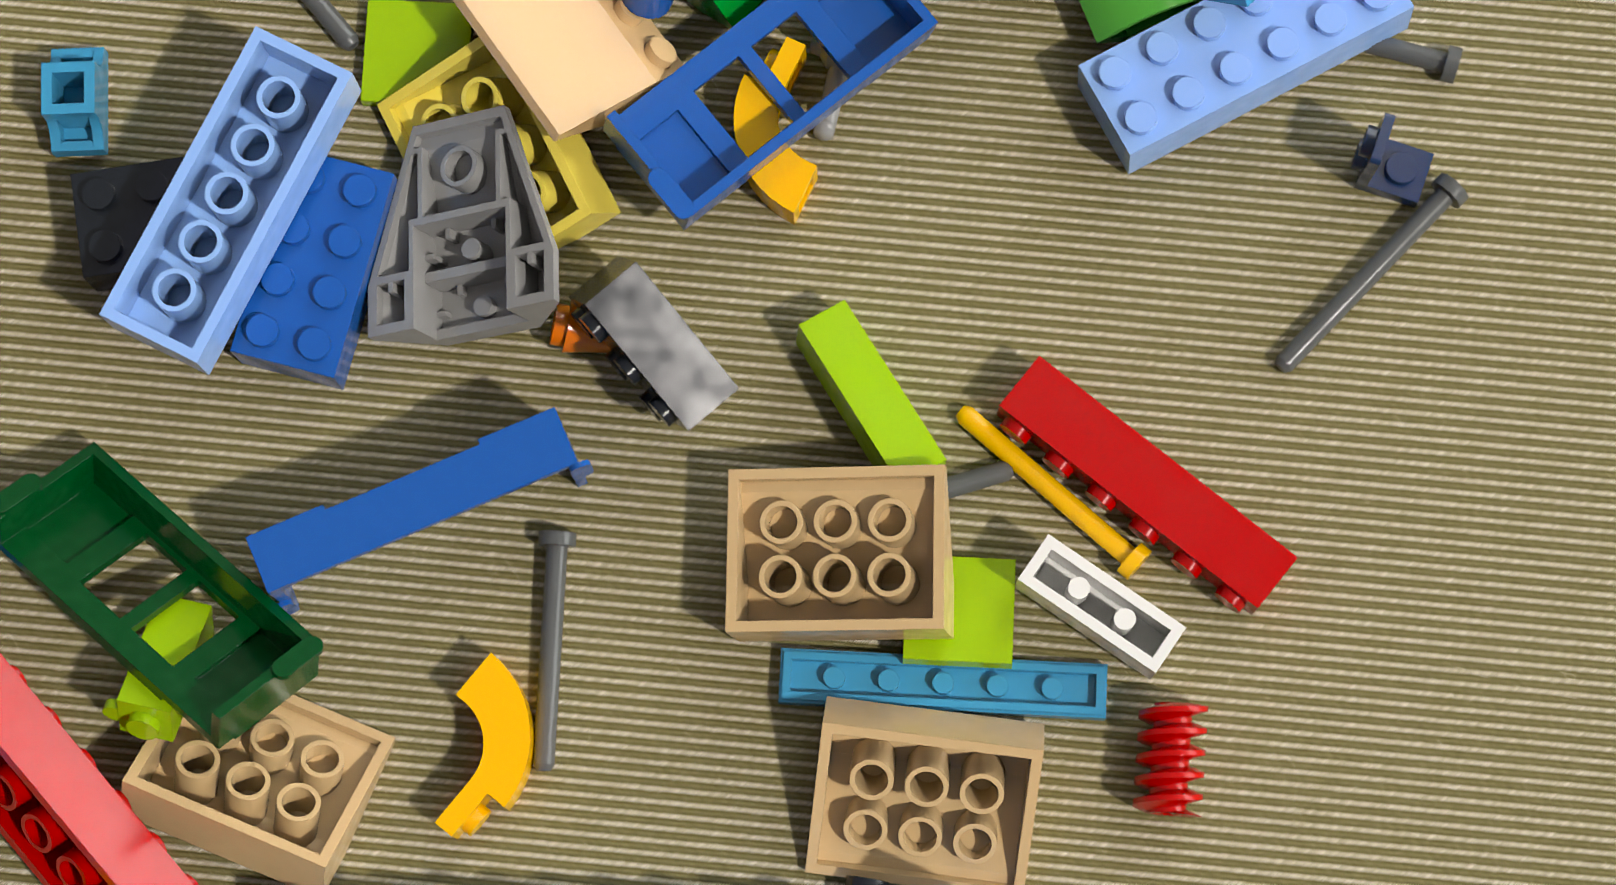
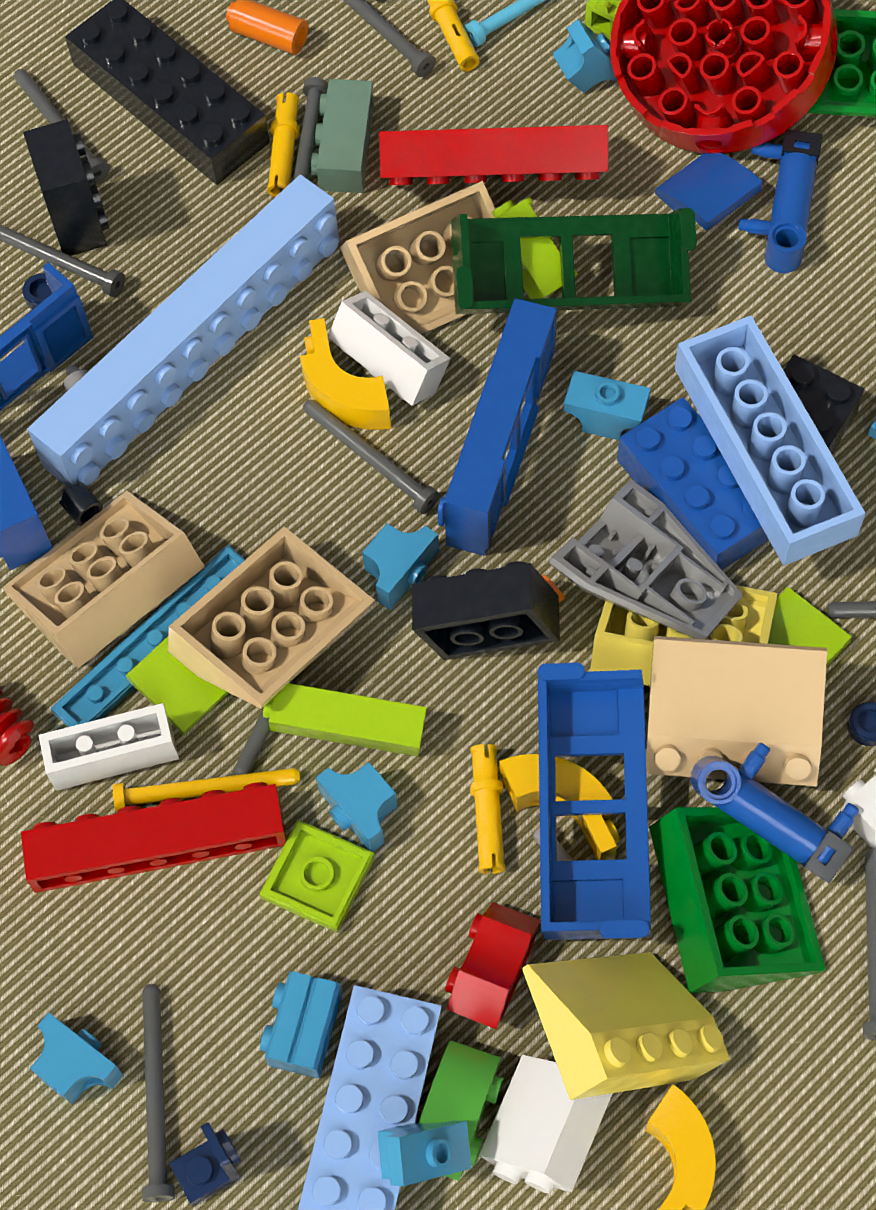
camera: 130 degrees right, 15 degrees down
(294, 432) = (605, 404): none -> dark azure brick
(412, 723) = (388, 347): none -> white brick
(654, 501) = (399, 561): none -> dark azure brick
(842, 199) = (487, 806): none -> yellow pin
(942, 321) = (359, 802): none -> dark azure brick
(992, 66) = (493, 964): none -> red brick
(1043, 306) = (317, 876): none -> lime tile
(1196, 190) = (302, 1024): none -> dark azure brick
(1411, 367) = (72, 1061): none -> dark azure brick

